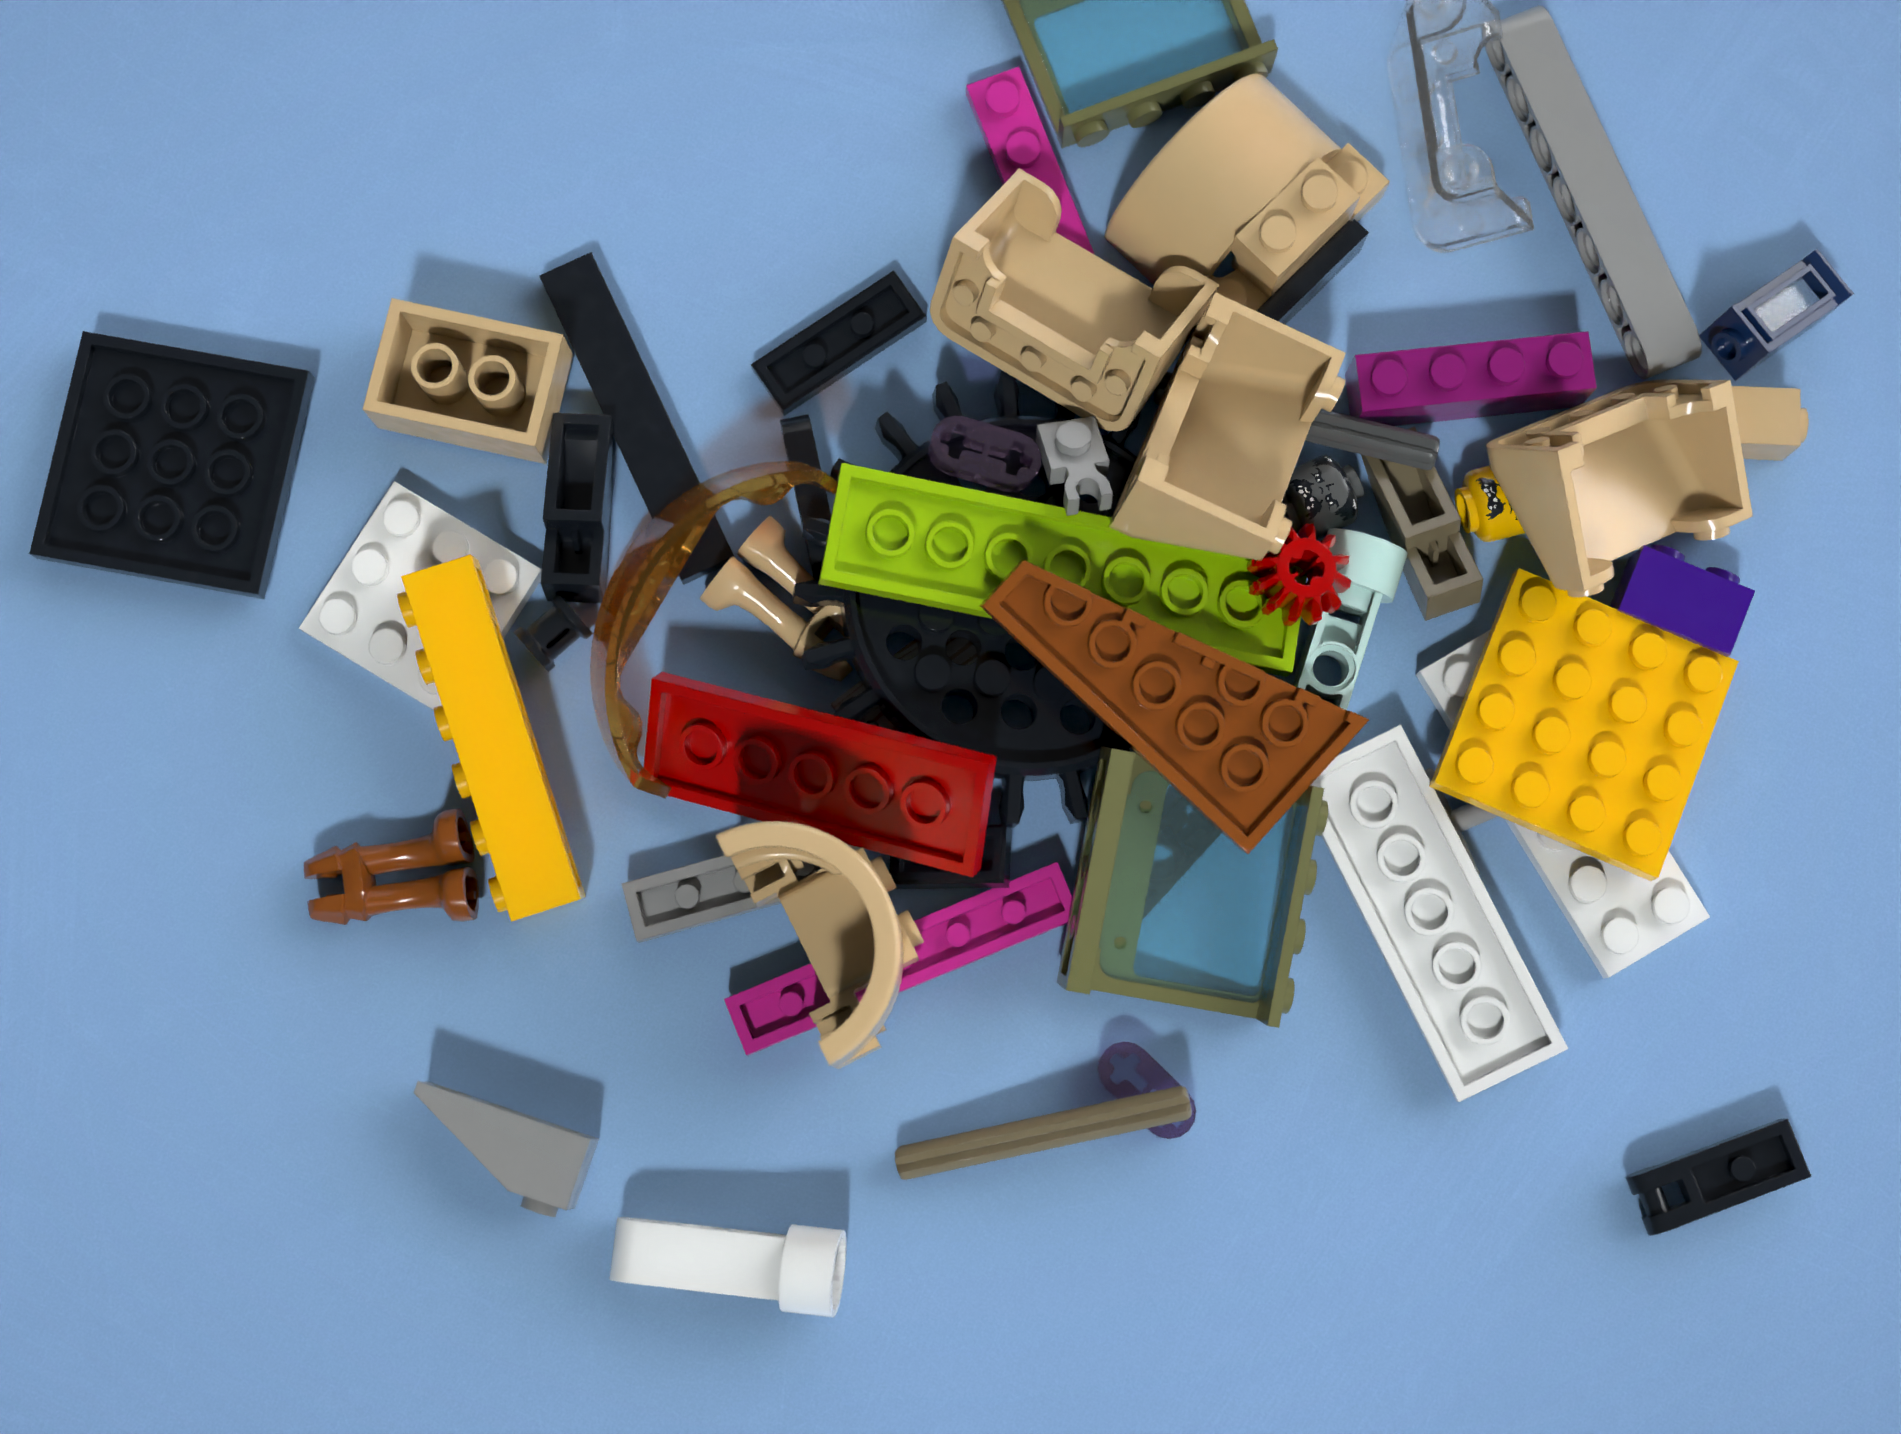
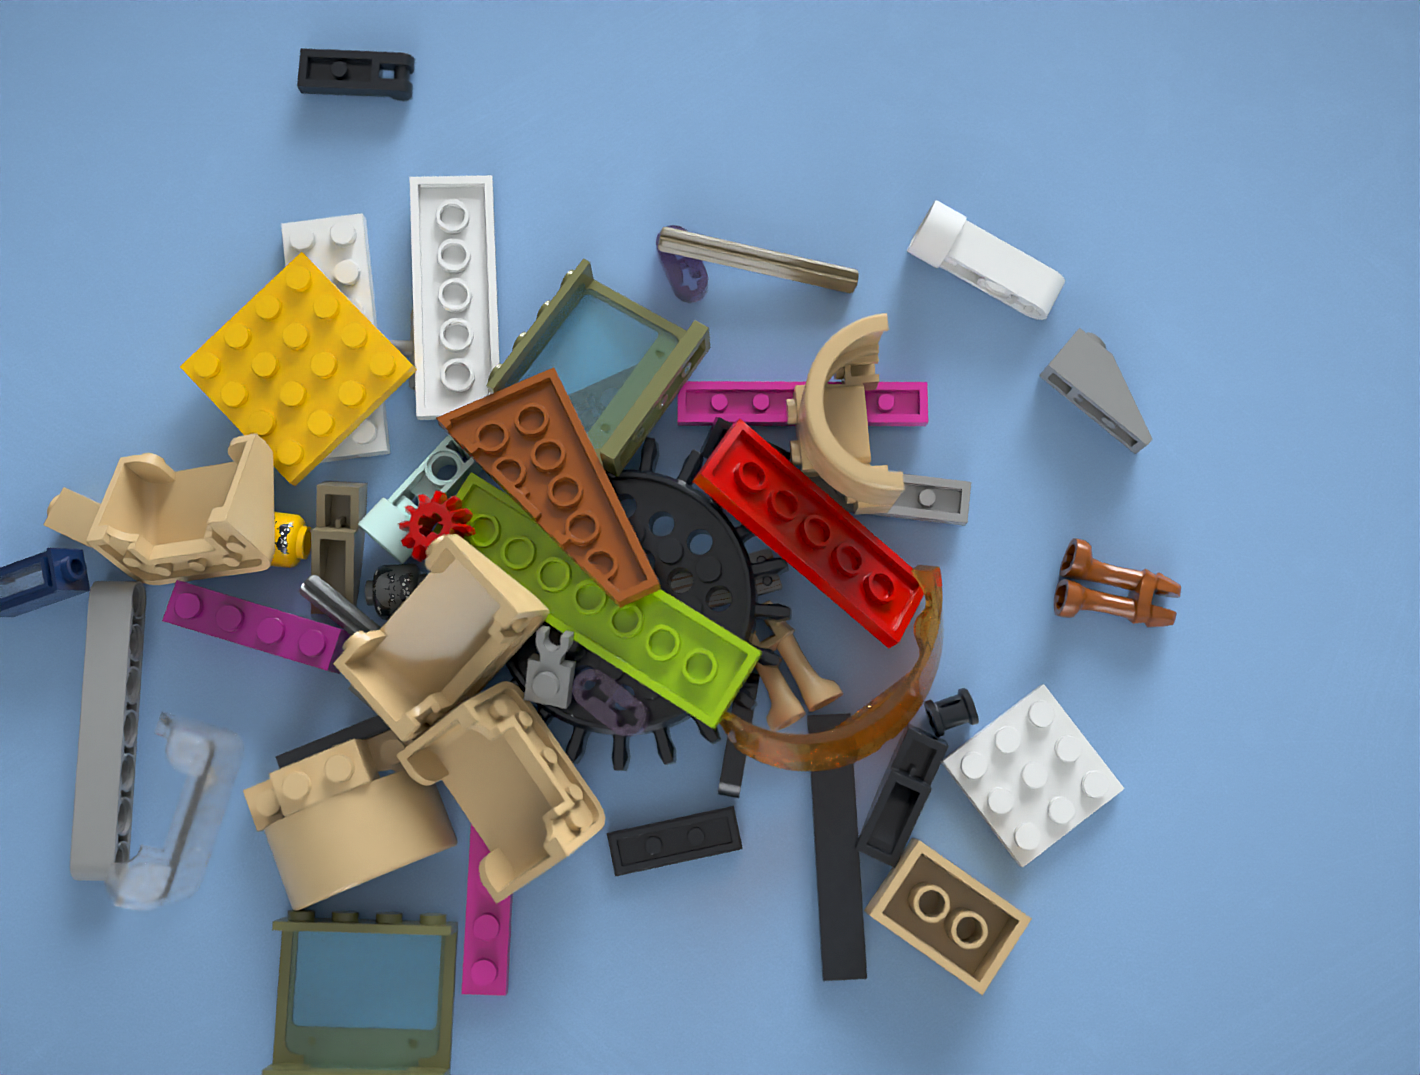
camera: 160 degrees left, 0 degrees up
(172, 465) = (1176, 946): black plate -> none
(492, 738) = (1020, 653): yellow brick -> none
(1683, 598) = (194, 420): dark purple brick -> none

